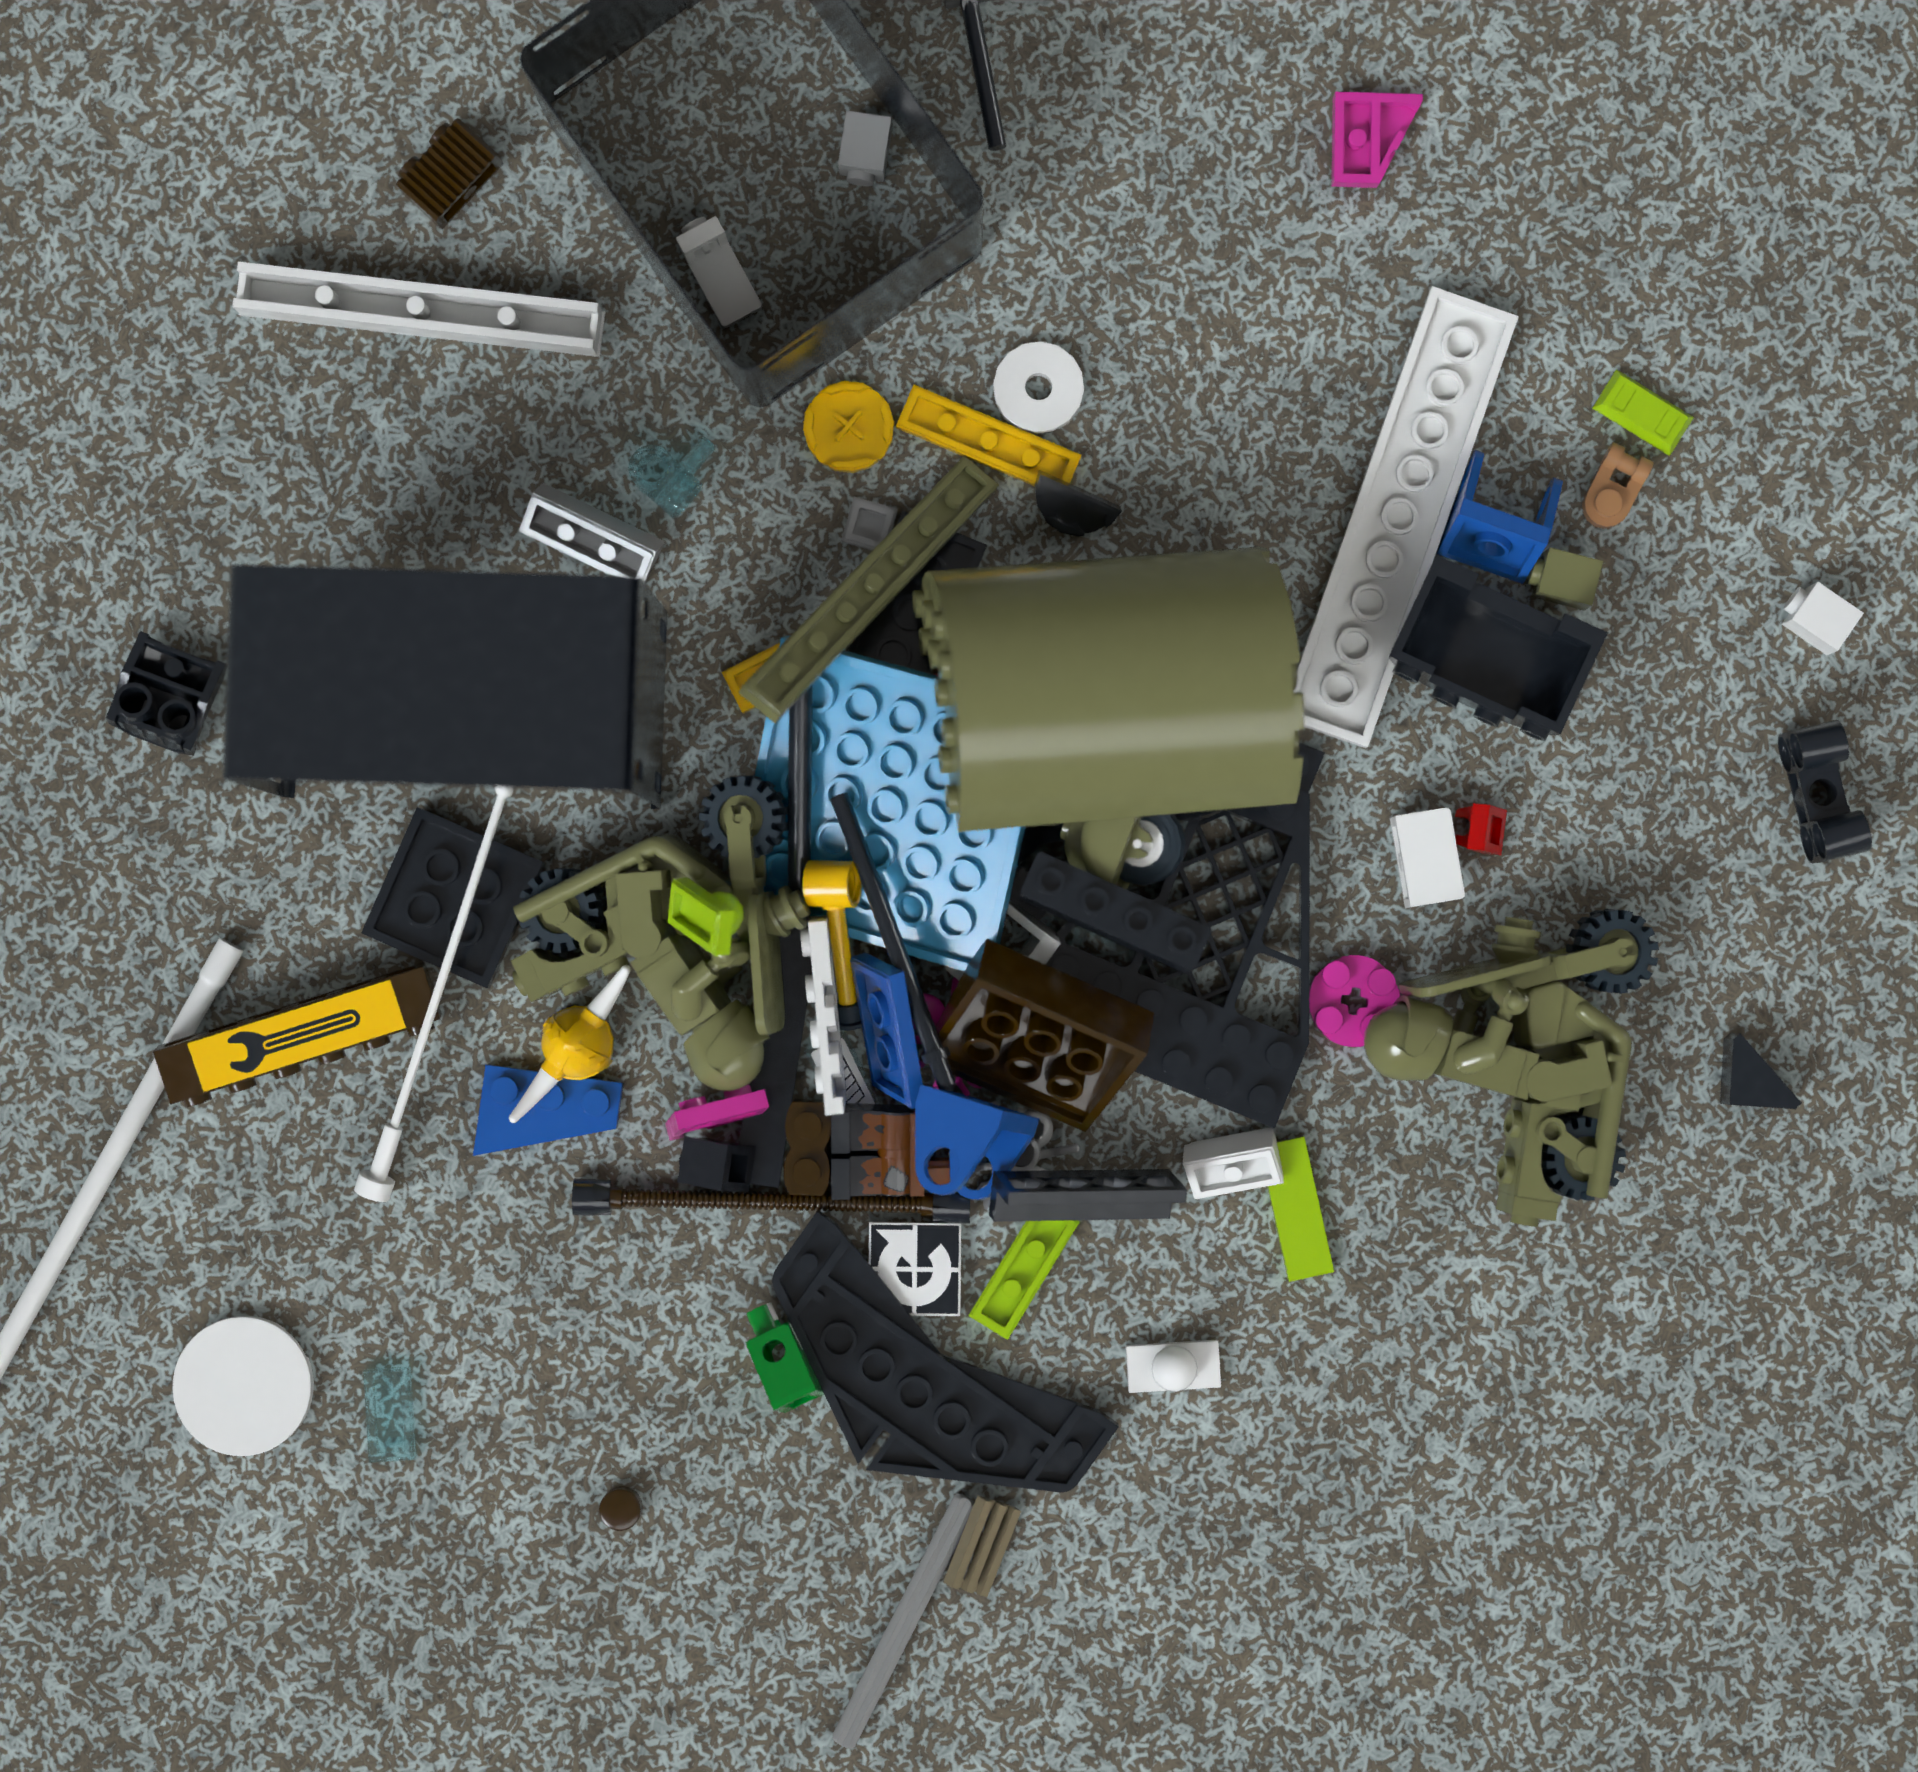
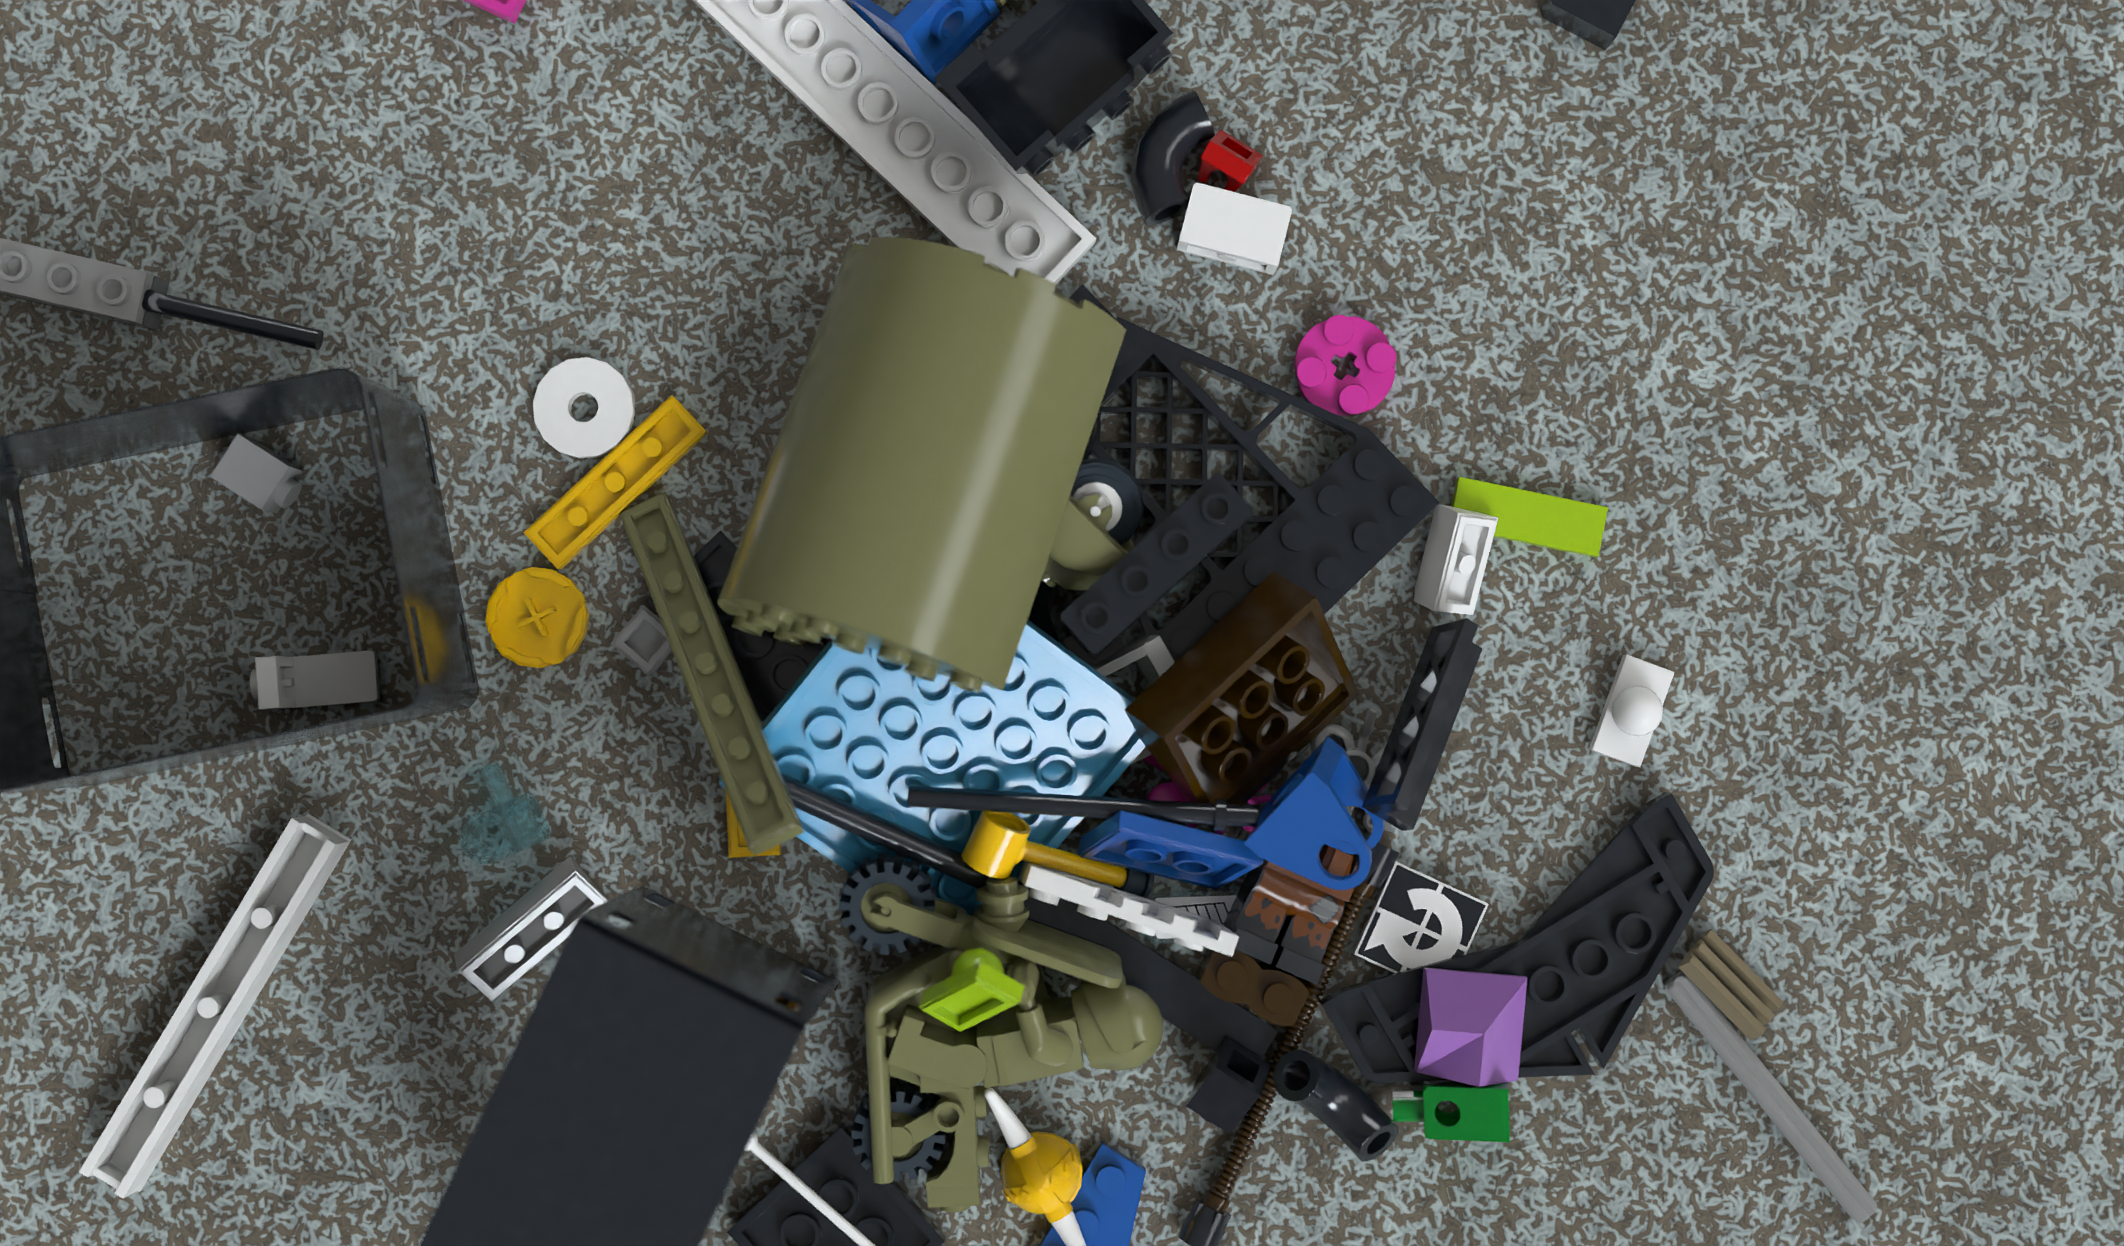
camera: 75 degrees left, 0 degrees up
(448, 172) = (89, 911): dark brown brick -> none
(699, 1114) = (1170, 1083): dark pink wing -> none
(741, 1260) = (1336, 1102): none -> black cylinder
(853, 1342) = (1470, 1026): none -> medium lavender slope
(1021, 1274) = (1474, 825): lime tile -> none
(1072, 508) = (720, 429): black tile -> none
(1461, 770) = (1161, 156): none -> black cylinder
(1575, 1062) = (1508, 170): olive piece -> none

